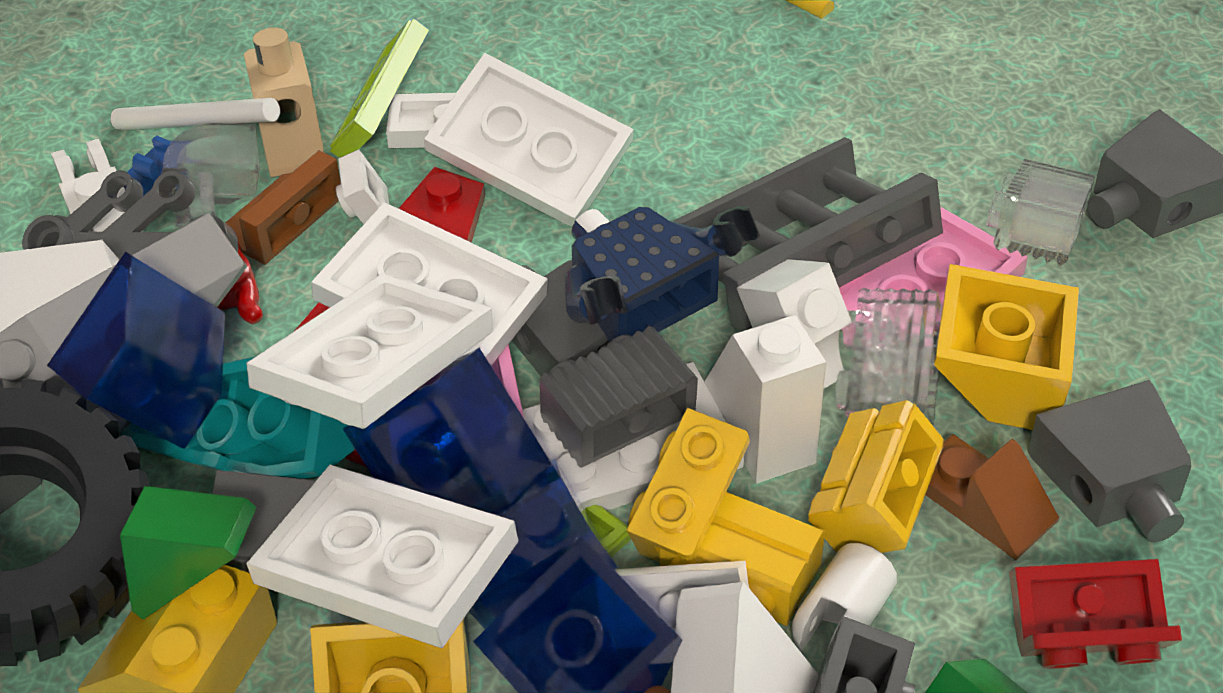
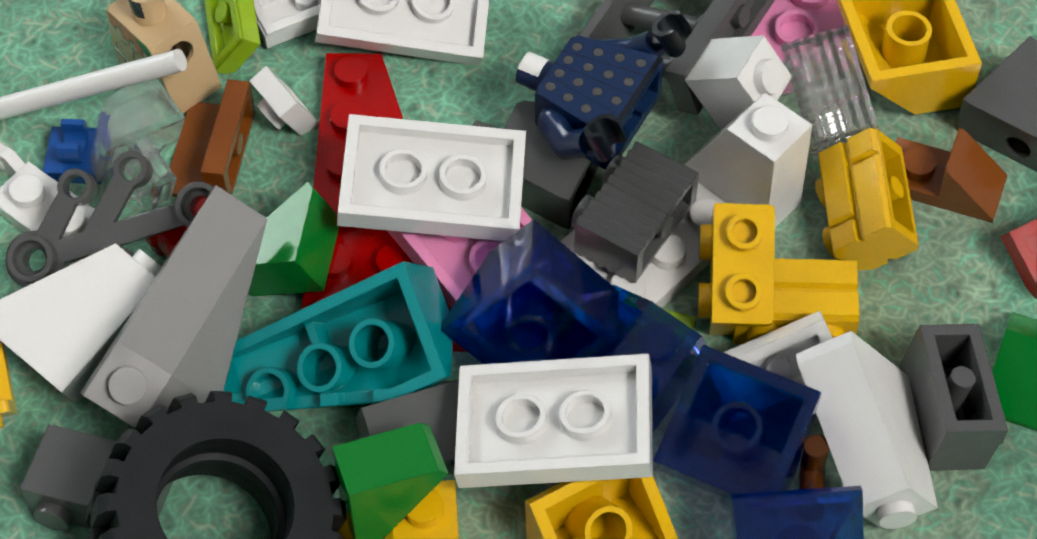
camera: 25 degrees left, 10 degrees up
(147, 352) = (240, 332): clear blue slope -> none
(270, 305) = (296, 246): none -> green slope
(370, 350) = (455, 257): white plate -> none
(851, 587) = (890, 301): white piece -> none

